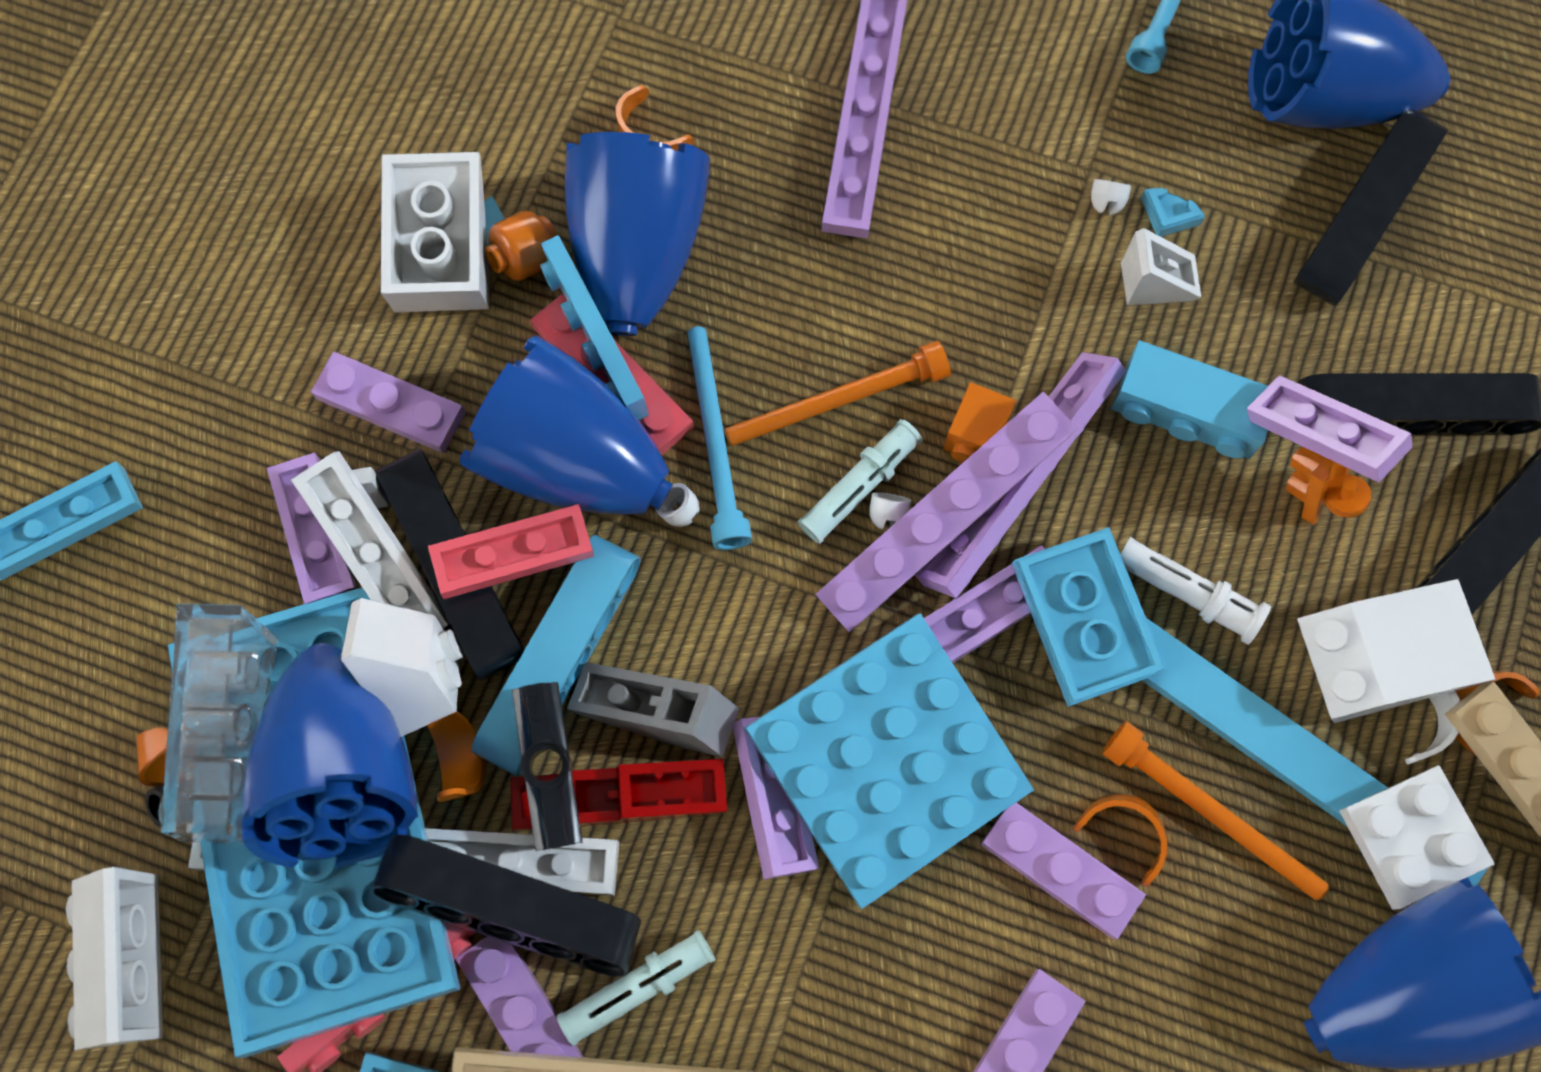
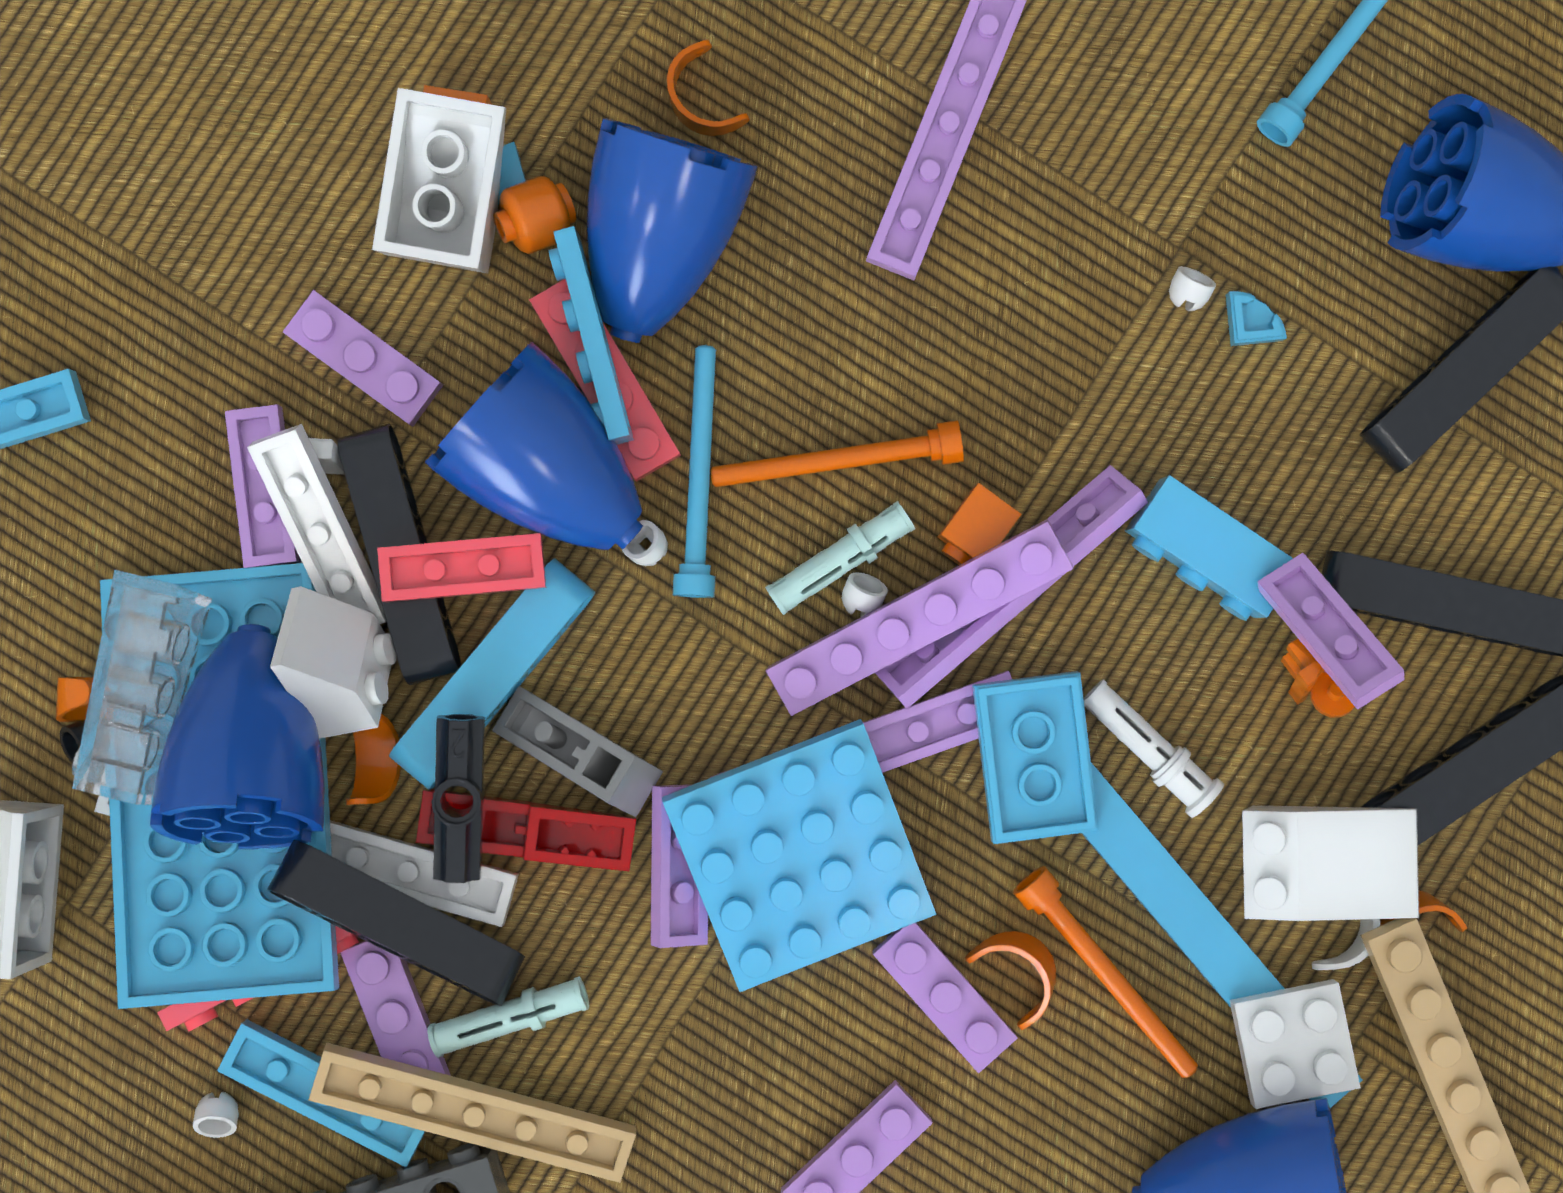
camera: 10 degrees right, 15 degrees up
(1158, 271) = (1219, 393): white slope -> none

